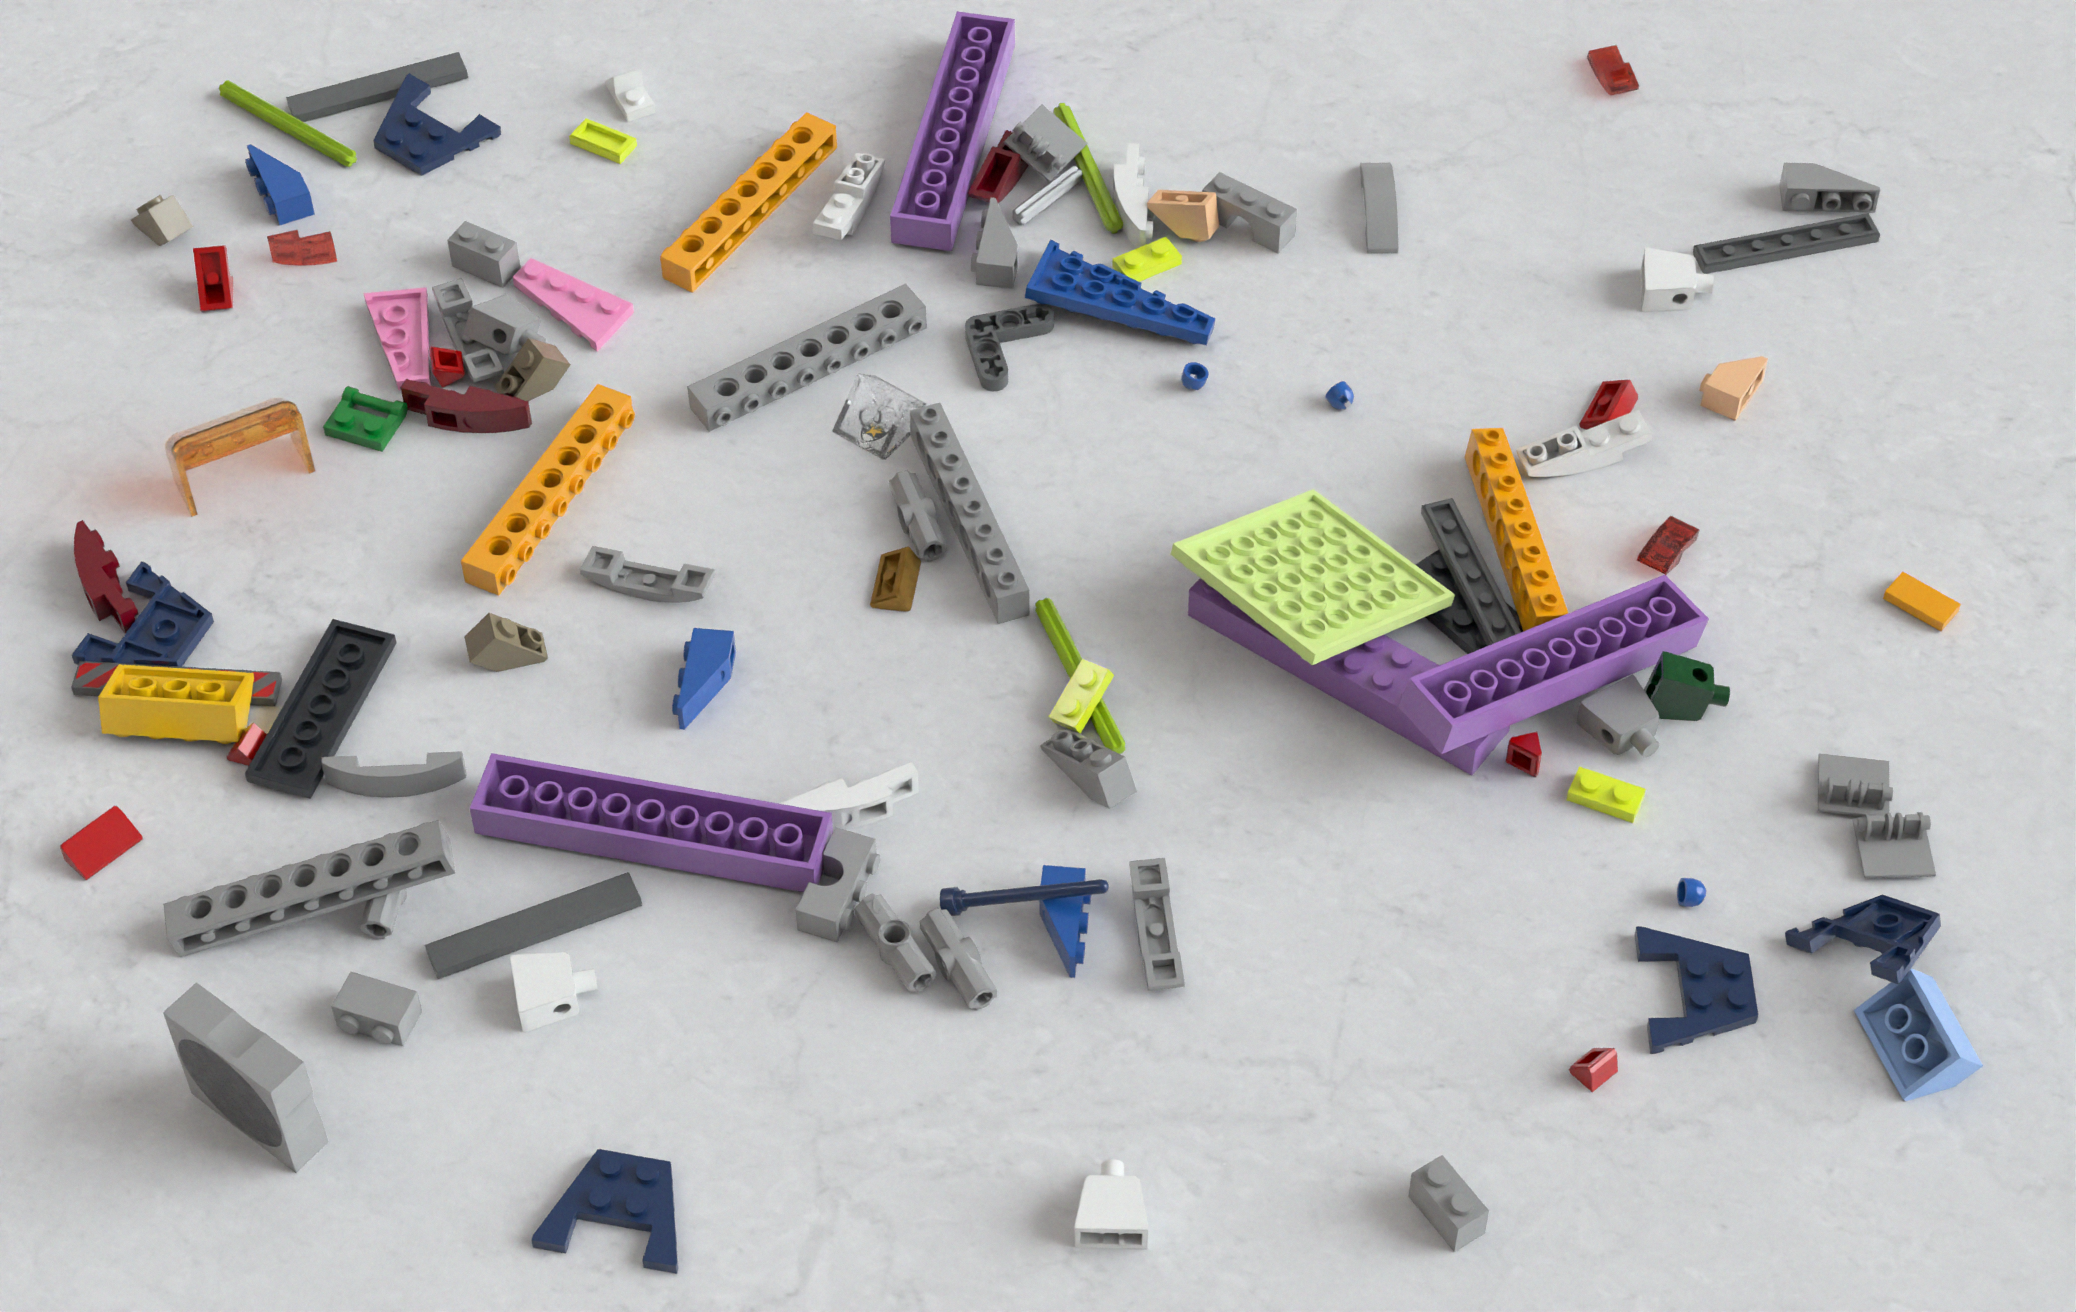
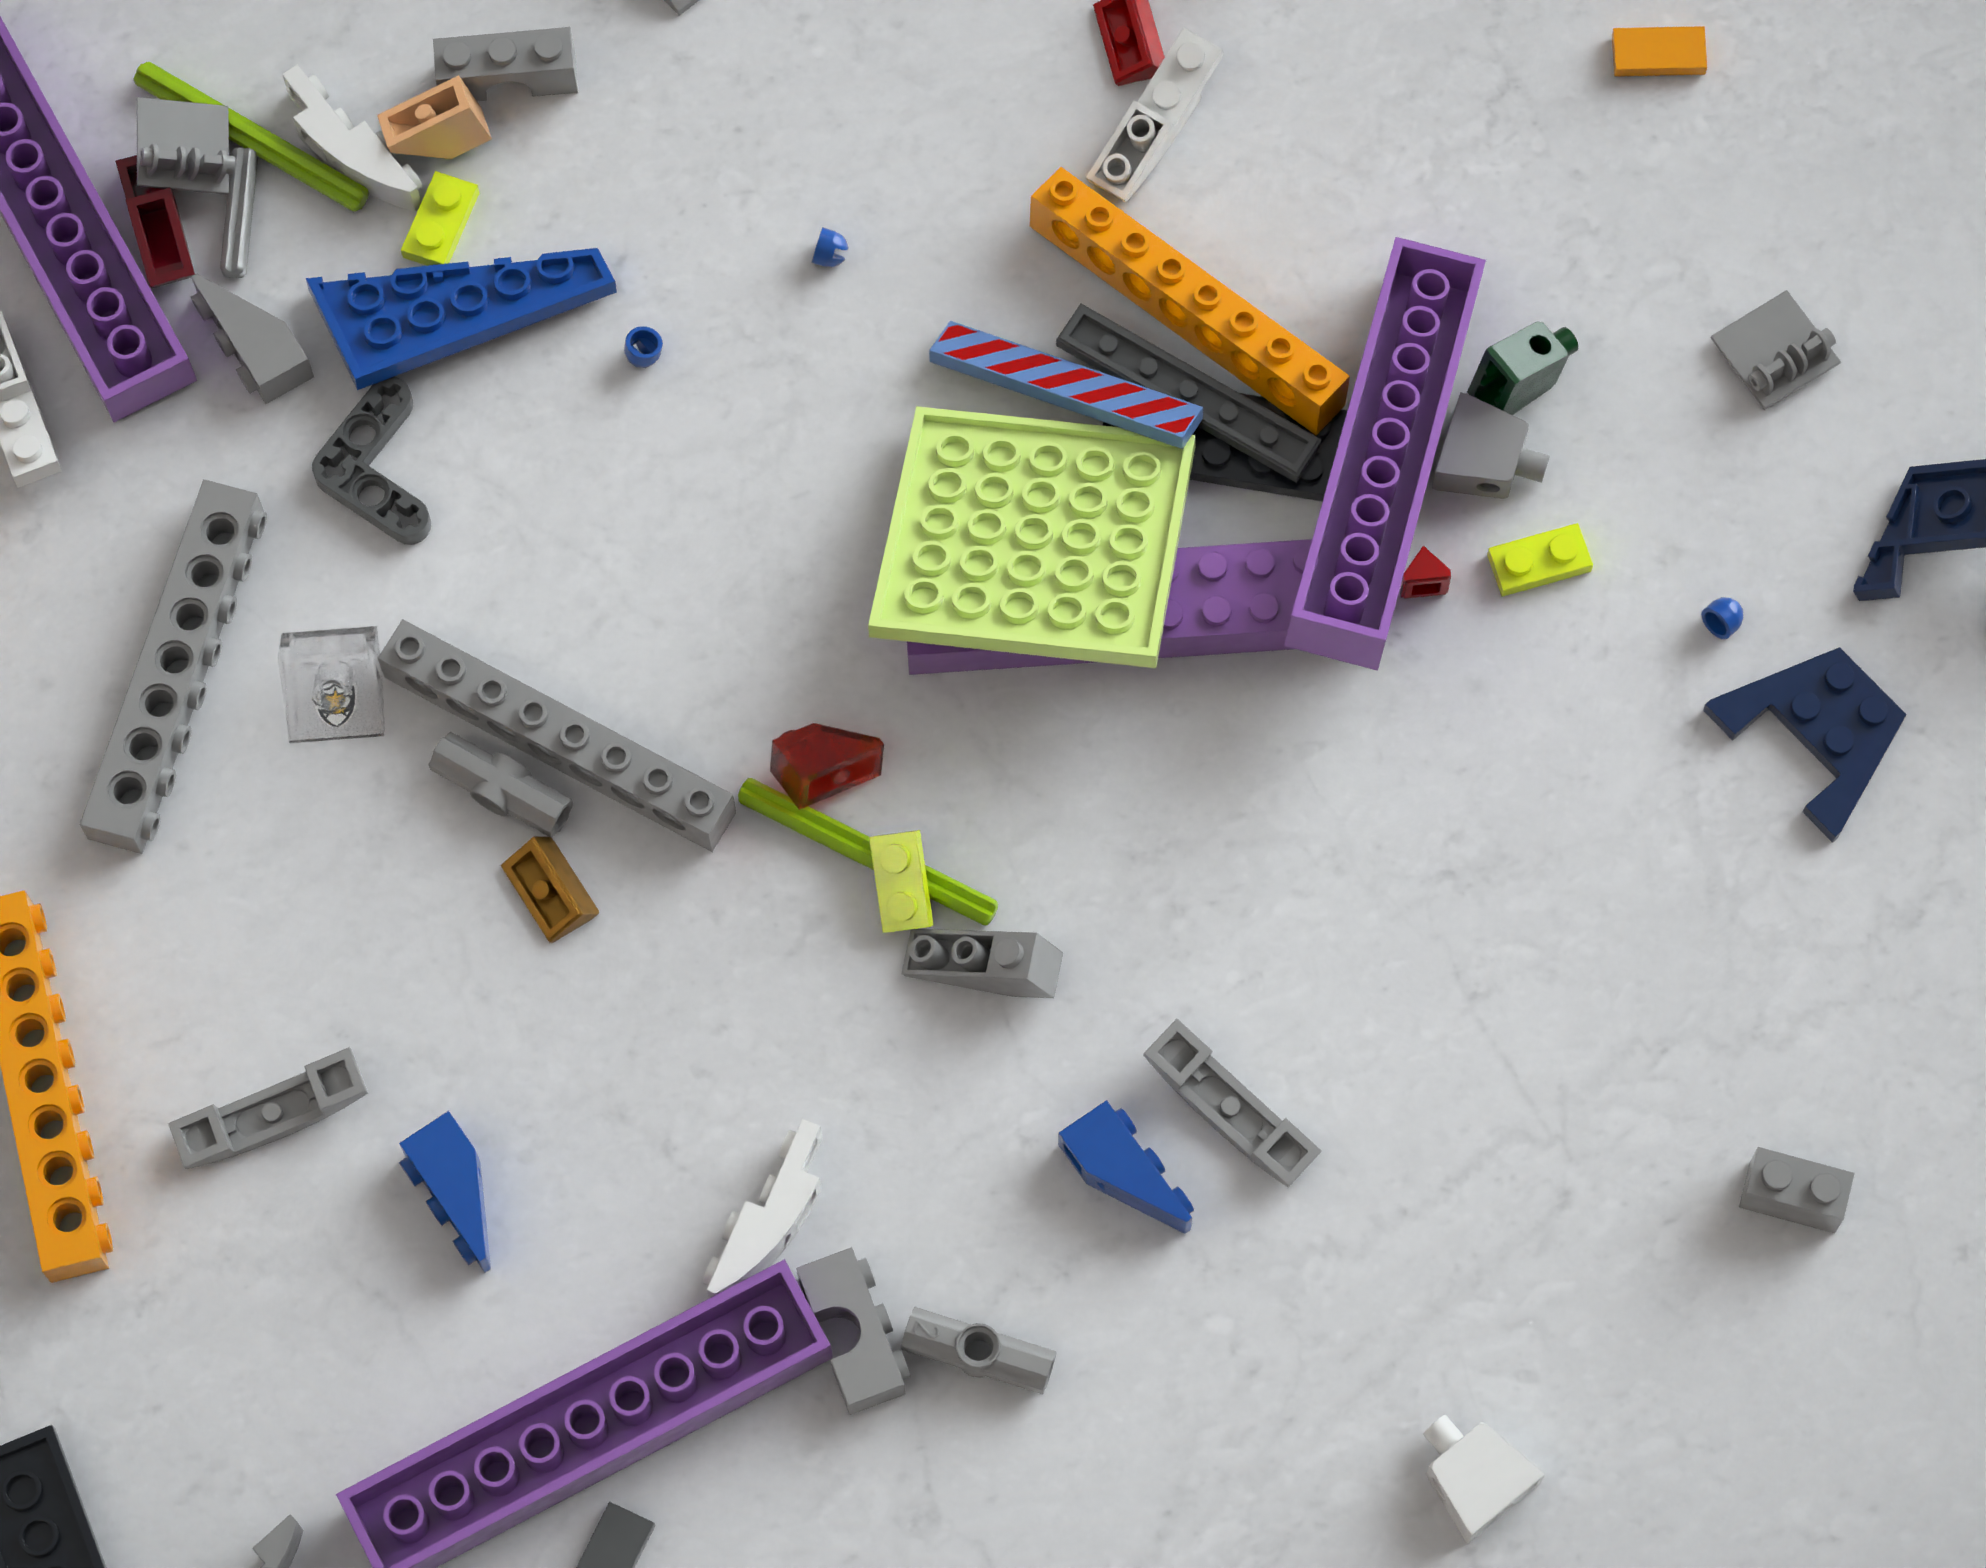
camera: 40 degrees left, 20 degrees up
(504, 644) = (192, 1333): dark tan slope -> none
(958, 900) = (996, 1246): dark blue piece -> none
(958, 958) = (1059, 1313): light grey piece -> none
(1097, 615) = (823, 762): none -> clear red slope
(1407, 531) = (1066, 384): none -> medium blue tile
(1595, 1067) = (1796, 906): slope -> none
(1667, 545) = (1346, 181): clear red slope -> none
(1894, 845) = (1873, 395): light grey hinge -> none

